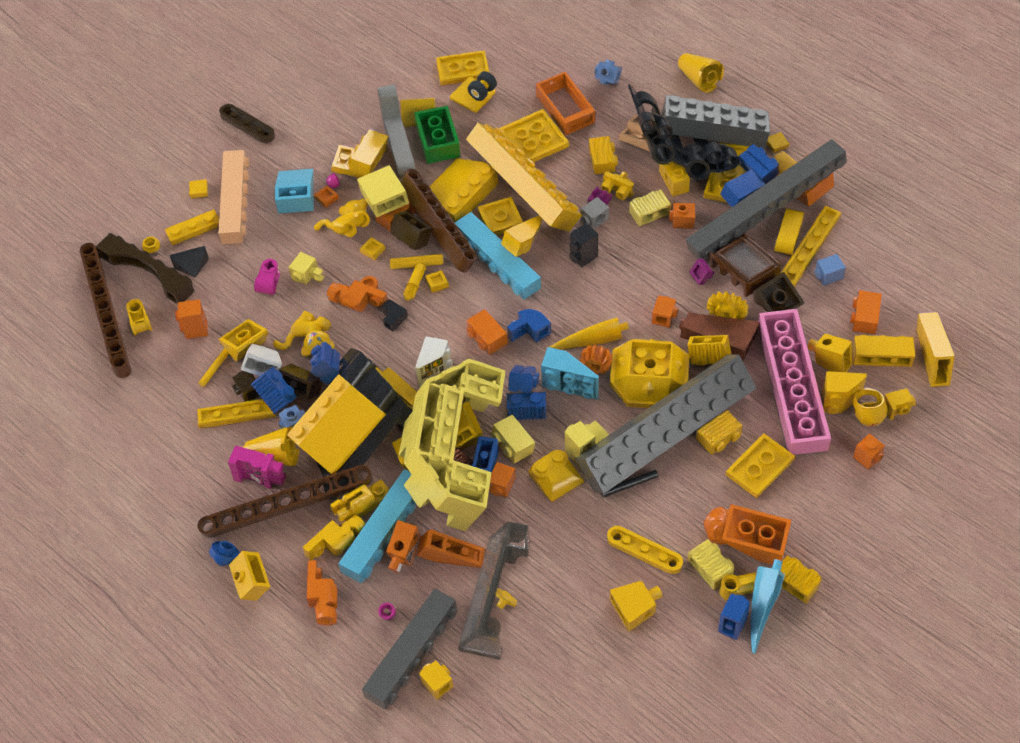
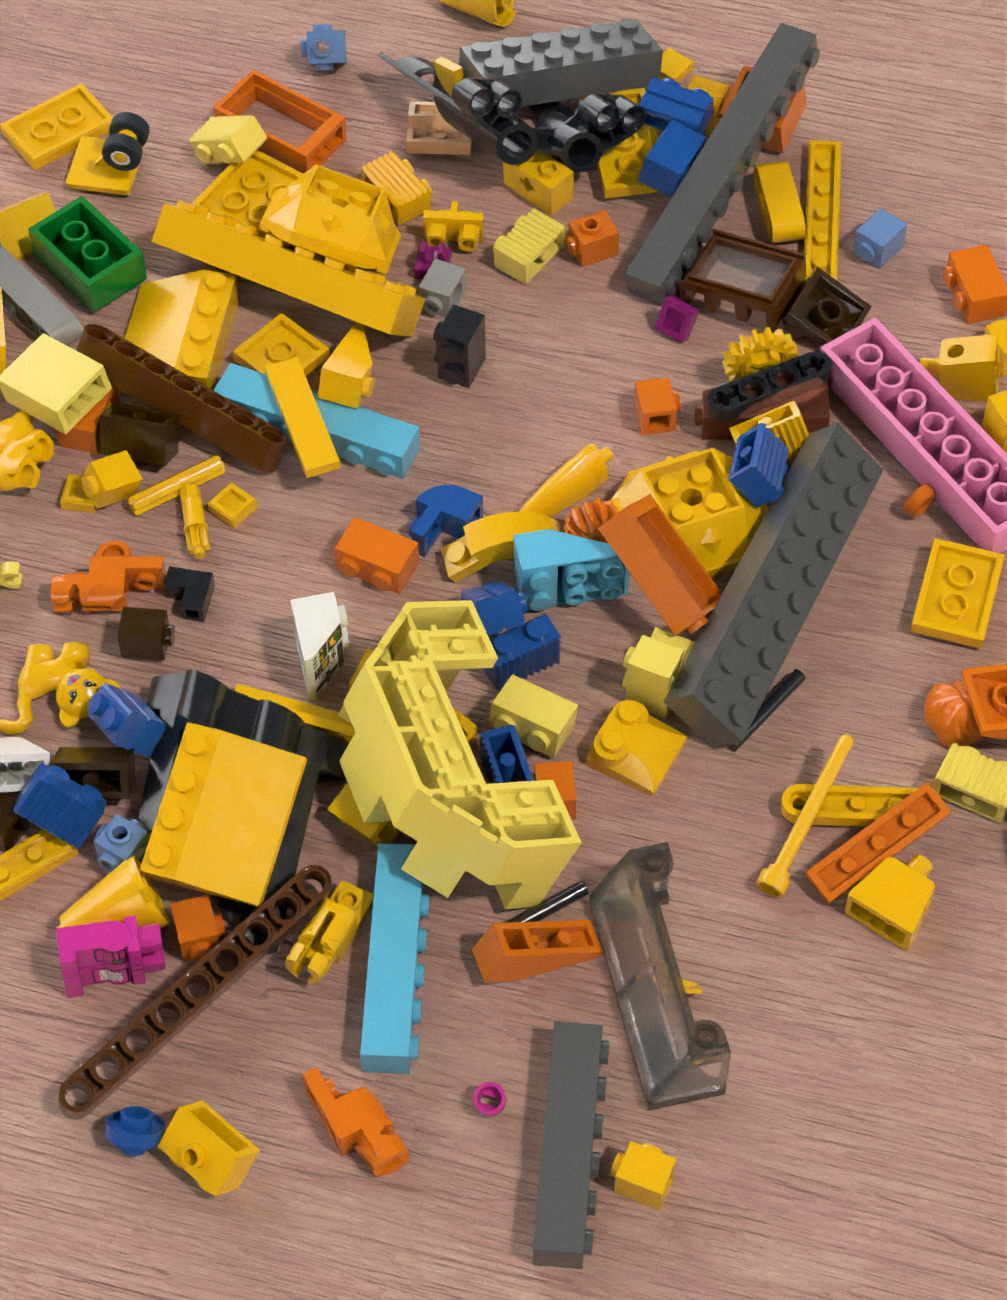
camera: 30 degrees left, 0 degrees up
(303, 471) = (196, 927): none -> orange brick
(334, 537) = (323, 1013): yellow plate -> none
(359, 326) = (145, 633): none -> dark brown brick
(385, 246) = (111, 479): none -> yellow brick
(403, 545) = (454, 966): orange torso -> none
(470, 533) = (553, 904): none -> black bar
(487, 251) = (302, 417): none -> yellow tile
(533, 102) = (228, 139): none -> light yellow brick
(538, 343) = (490, 541): none -> yellow arch
(558, 161) = (335, 218): none -> yellow piece
(582, 567) = (775, 878): none -> yellow piece
(622, 389) = (662, 565): none -> orange window
(644, 571) = (876, 842): none -> orange plate
(656, 106) = (448, 73): none -> yellow tile
(690, 360) = (759, 465): none -> blue brick
(719, 432) = (863, 565): yellow brick -> none
(721, 319) = (766, 383): none -> black beam
(768, 411) = (919, 501): none -> orange tile

